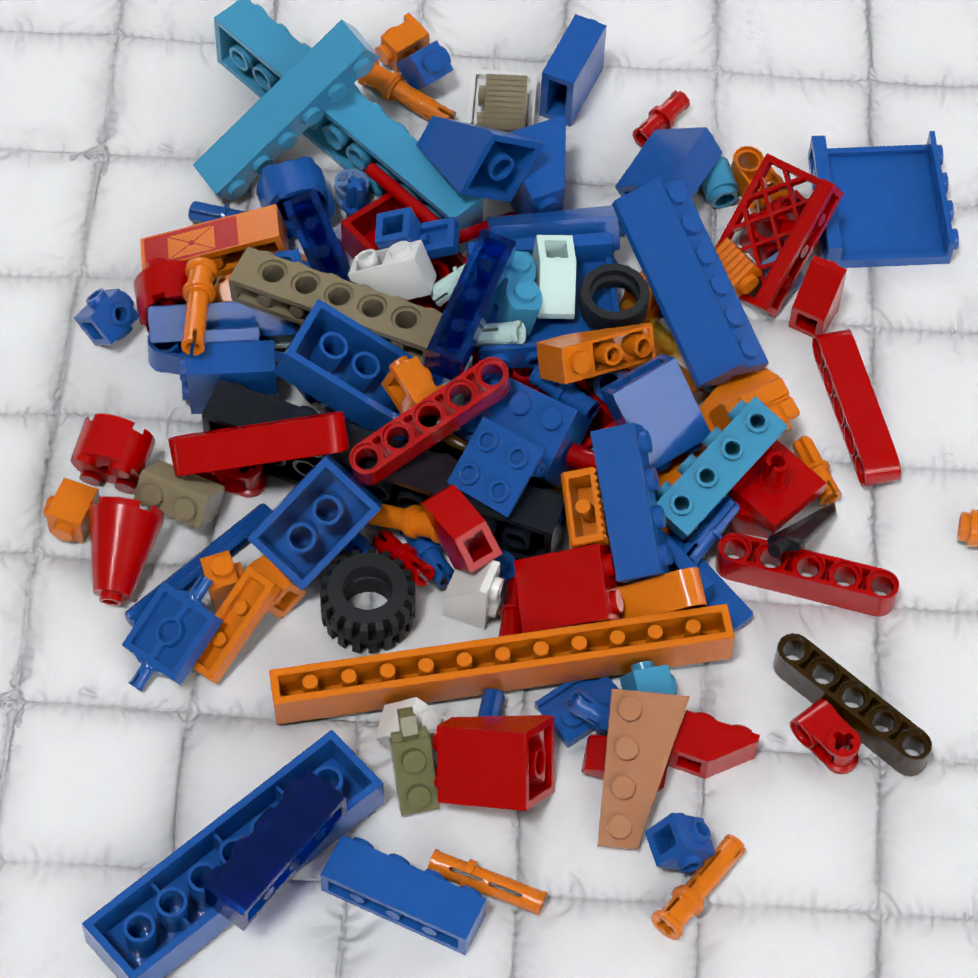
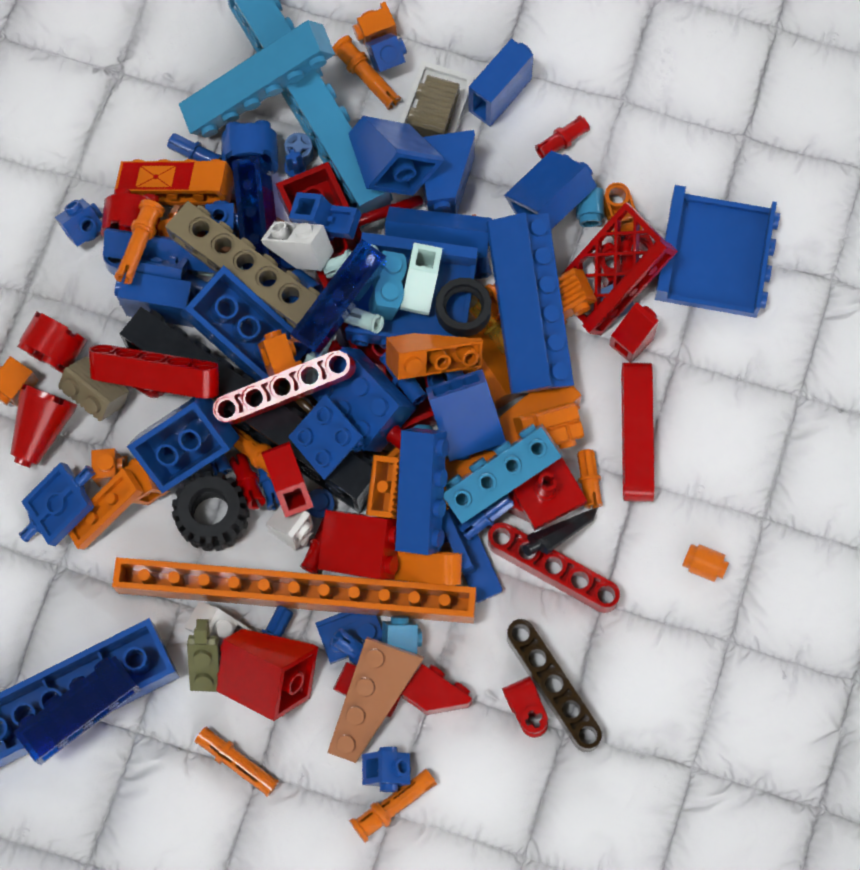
camera: 20 degrees right, 15 degrees up
(187, 575) = (111, 440): blue axle -> none
(400, 193) = (329, 173): red bar -> none
(404, 893) = (172, 757): blue brick -> none

